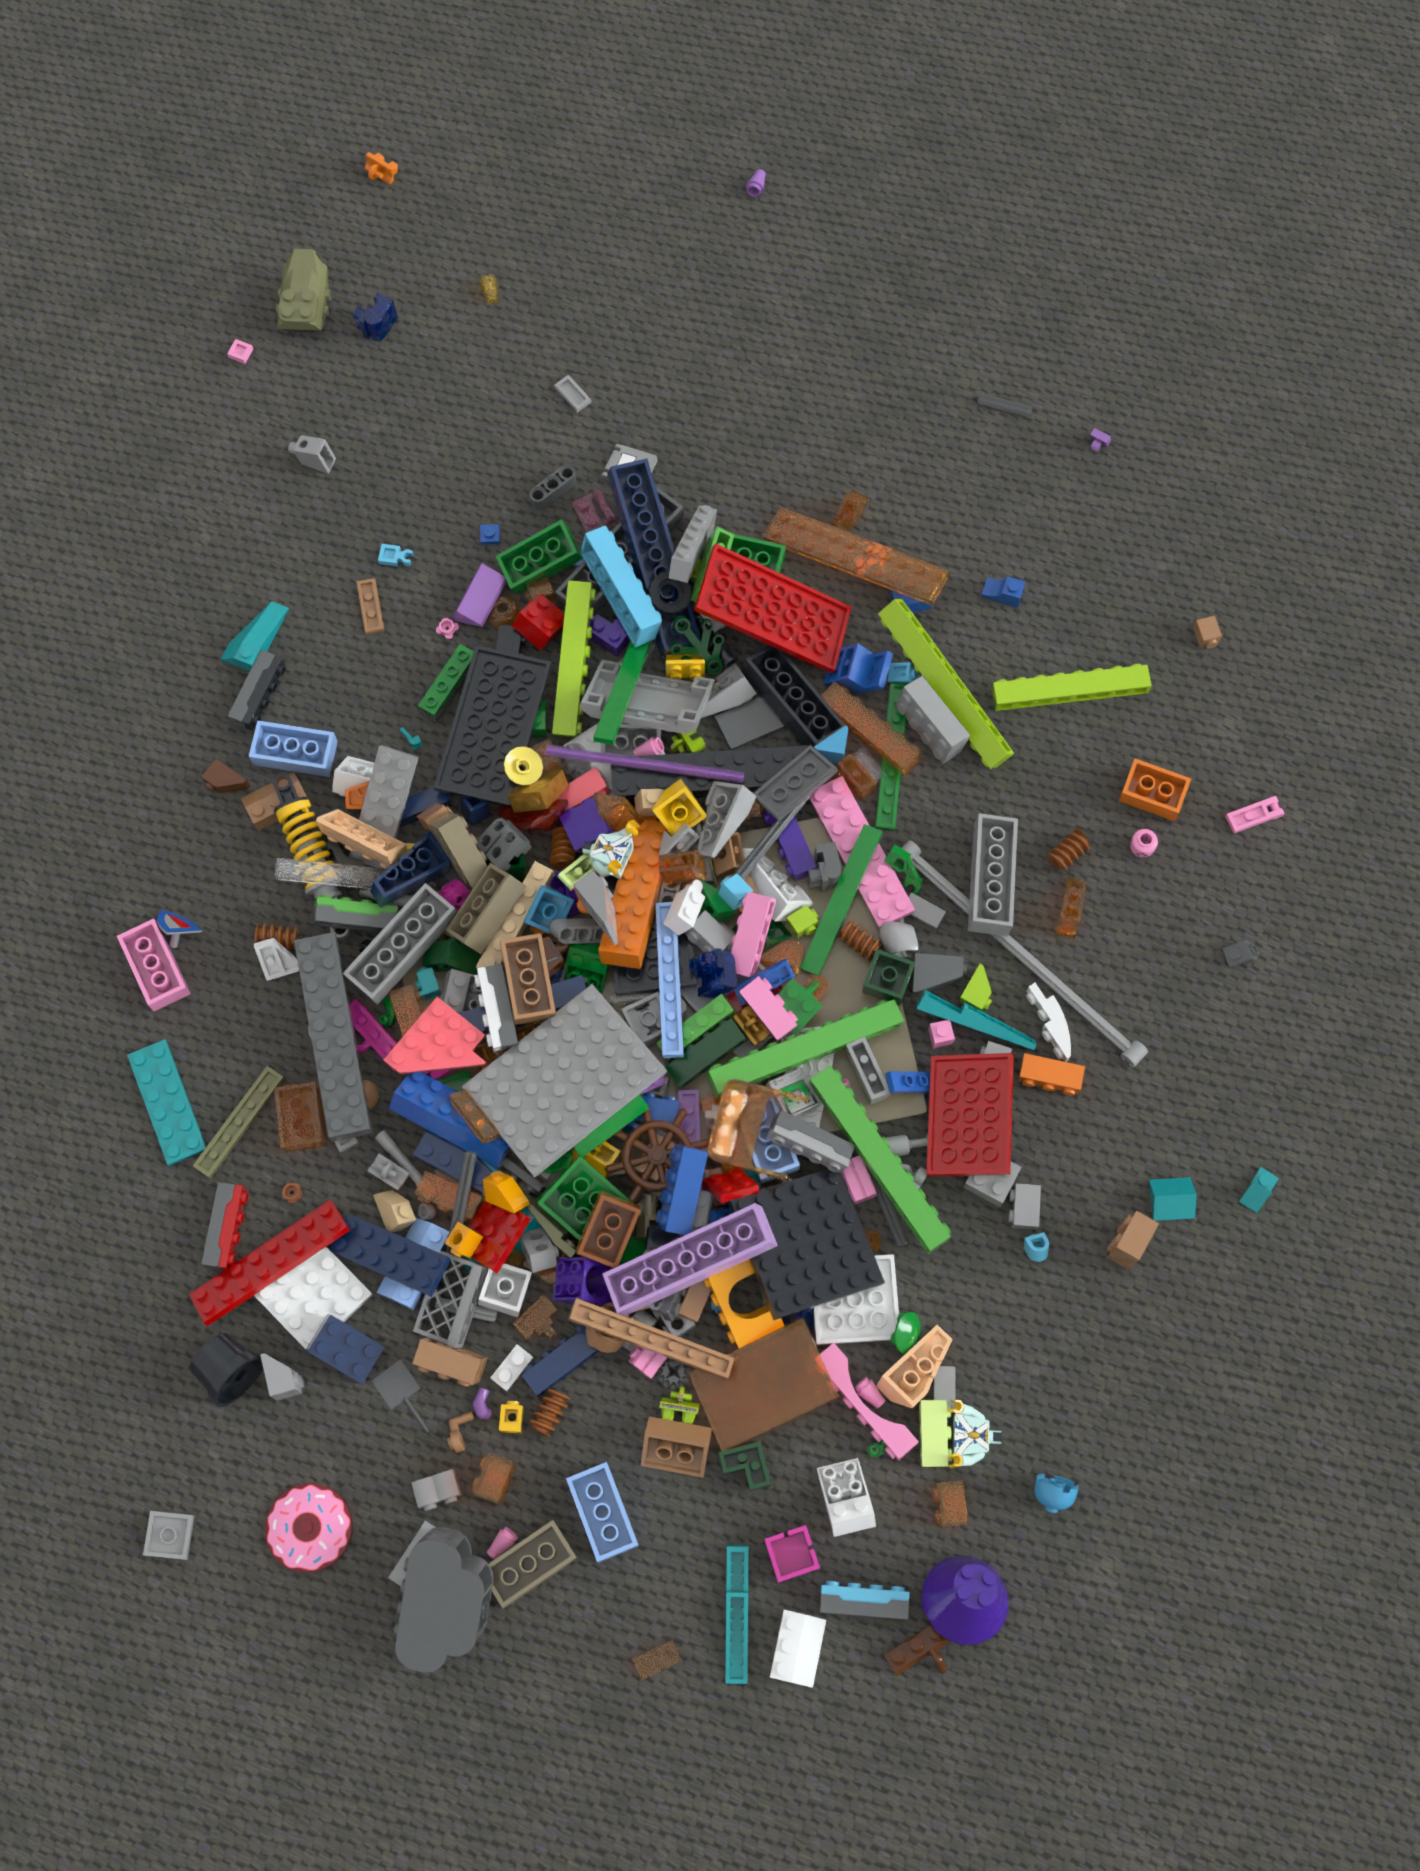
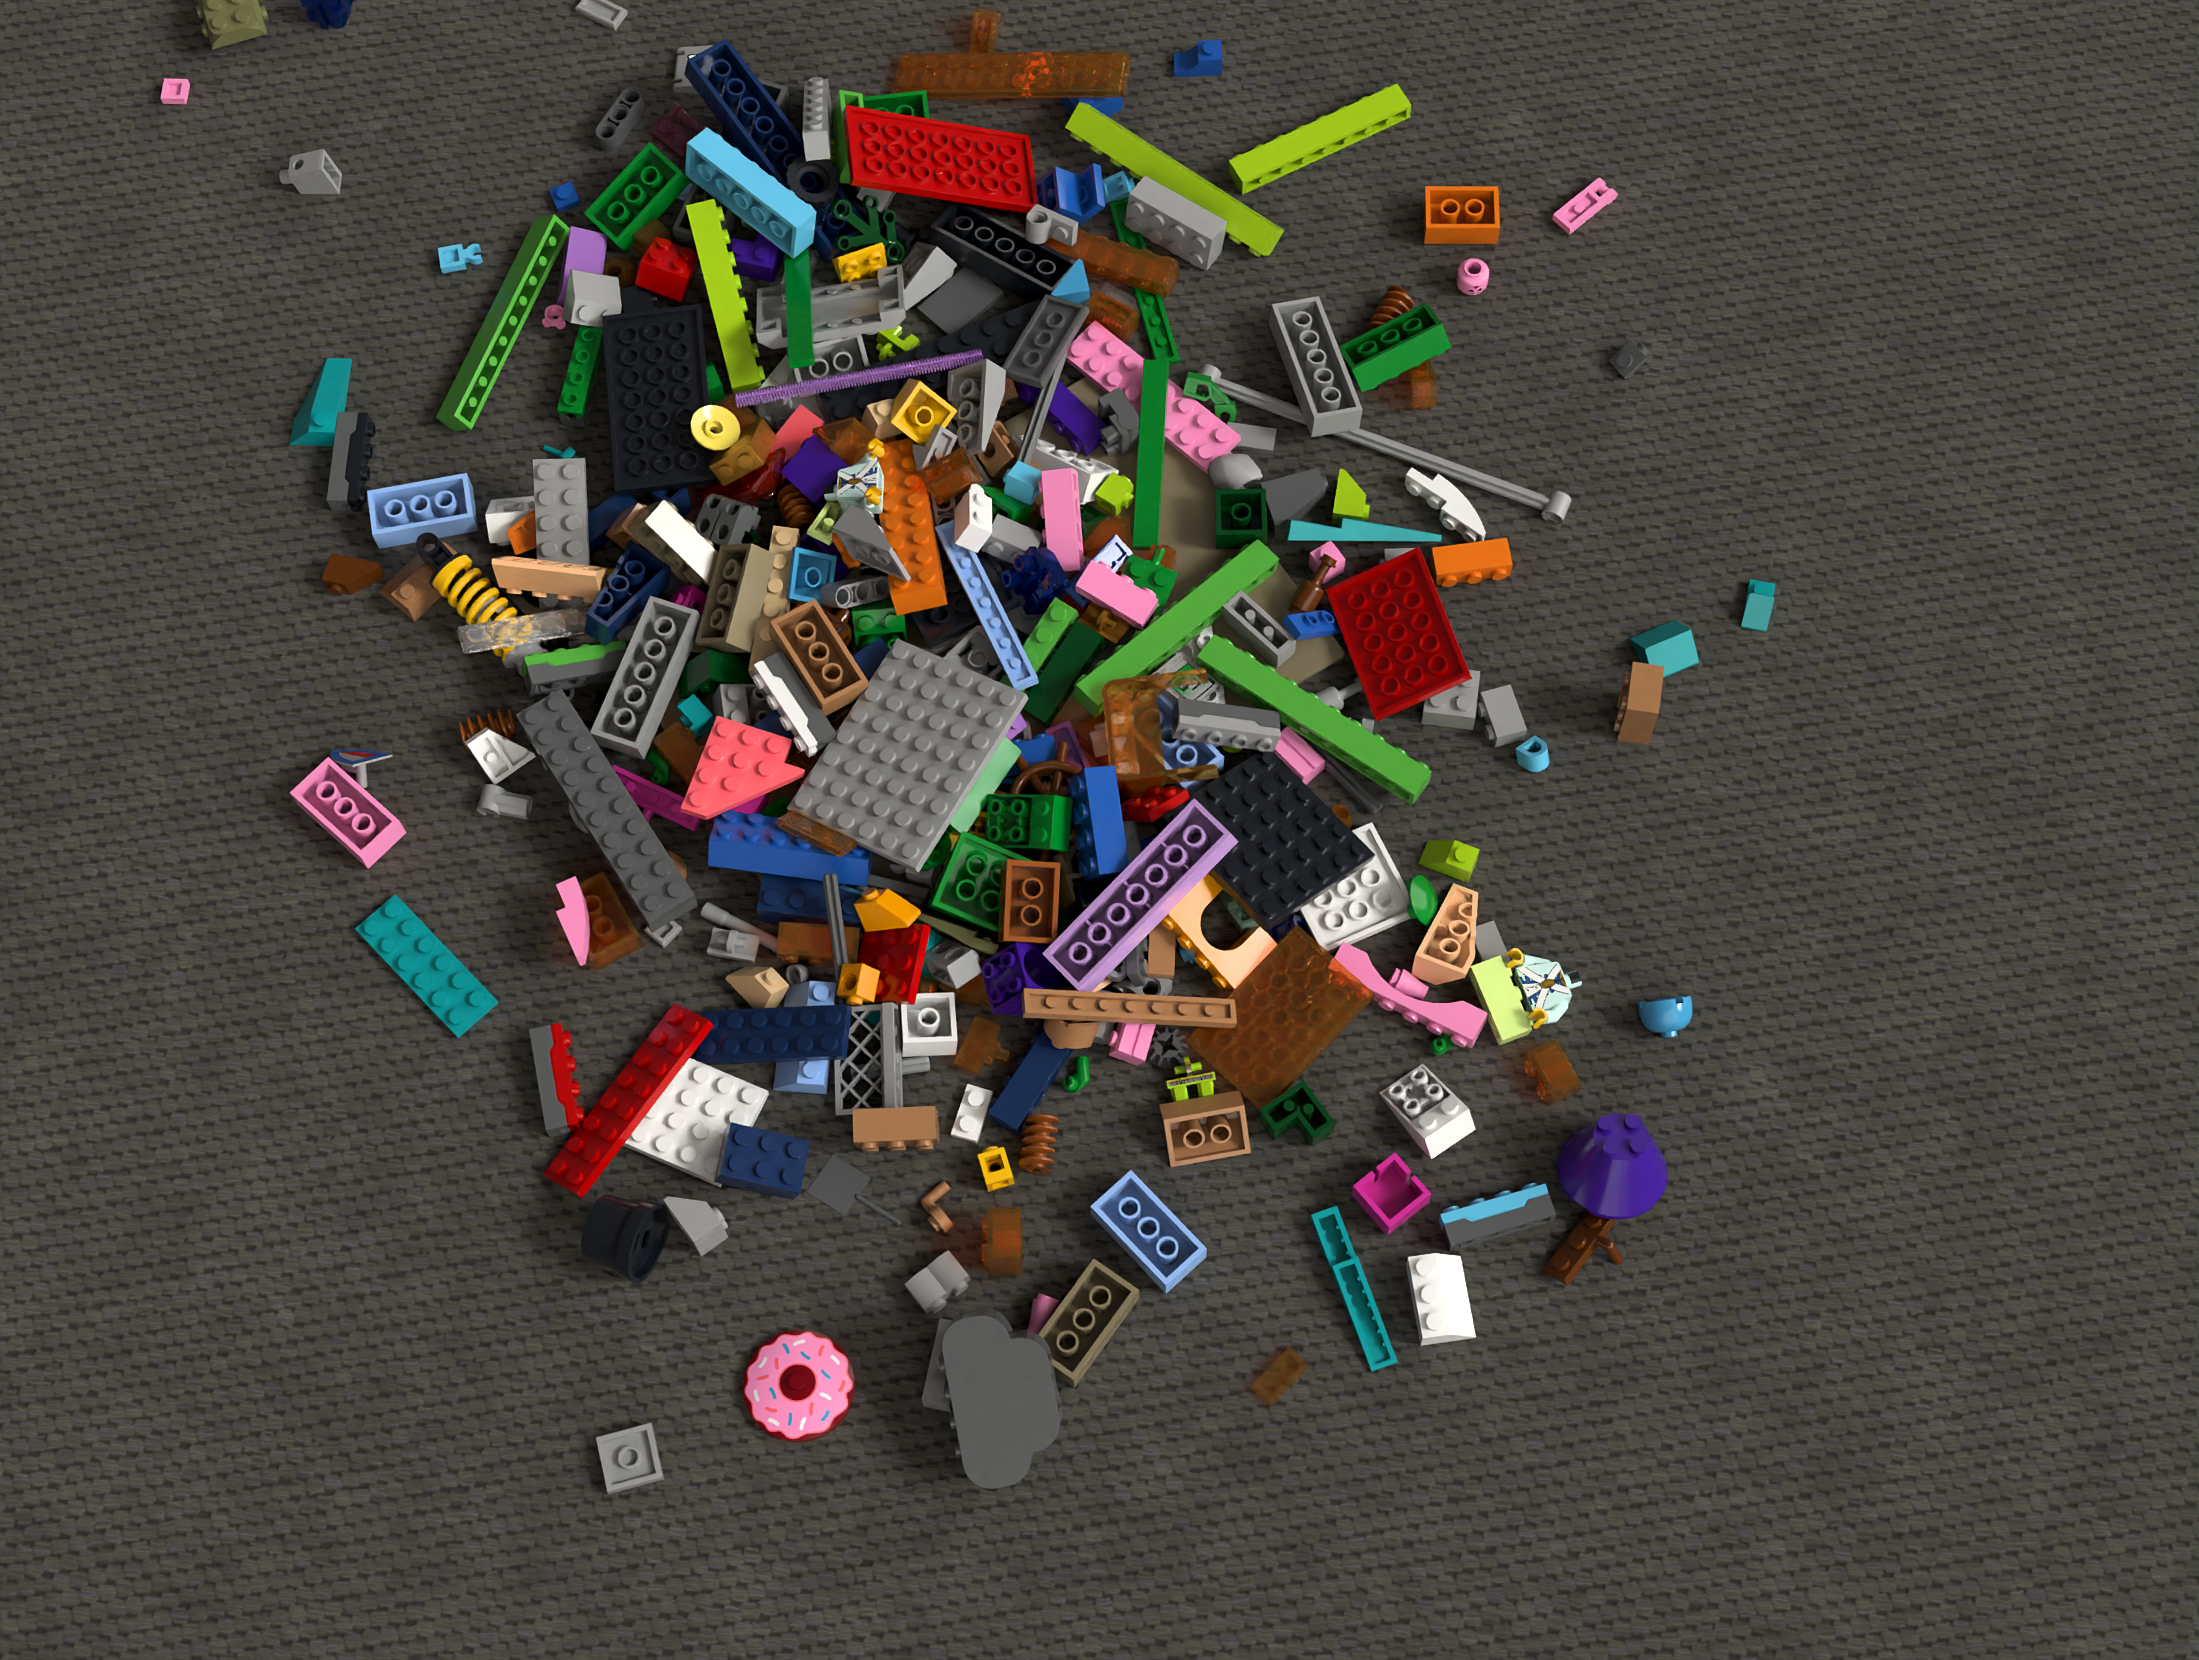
camera: 20 degrees left, 5 degrees down
(238, 1122) = (524, 957): olive plate -> none
(266, 997) = (499, 802): none -> light grey piece
(279, 1112) = (575, 917): none -> bright pink slope
(292, 1187) = (618, 1008): dark orange plate -> none
(370, 606) = (450, 323): medium nougat tile -> none
(406, 620) = (503, 323): none -> bright green brick
(475, 626) = (590, 298): none -> light grey slope
(480, 1406) = (951, 1170): medium lavender arm -> none
(601, 1370) = (1080, 1077): none -> green arm
(632, 1167) = (1029, 821): none -> green slope
(651, 747) = (857, 360): bright pink cone -> none
(830, 687) = (1045, 223): none -> light grey plate
(860, 940) = (1190, 490): dark orange piece -> none
(917, 1055) = (1309, 591): none -> reddish brown piece
(941, 1305) = (1450, 858): none -> lime slope
(1058, 881) = (1394, 347): none -> green brick
(1207, 632) = (1450, 28): medium nougat brick -> none

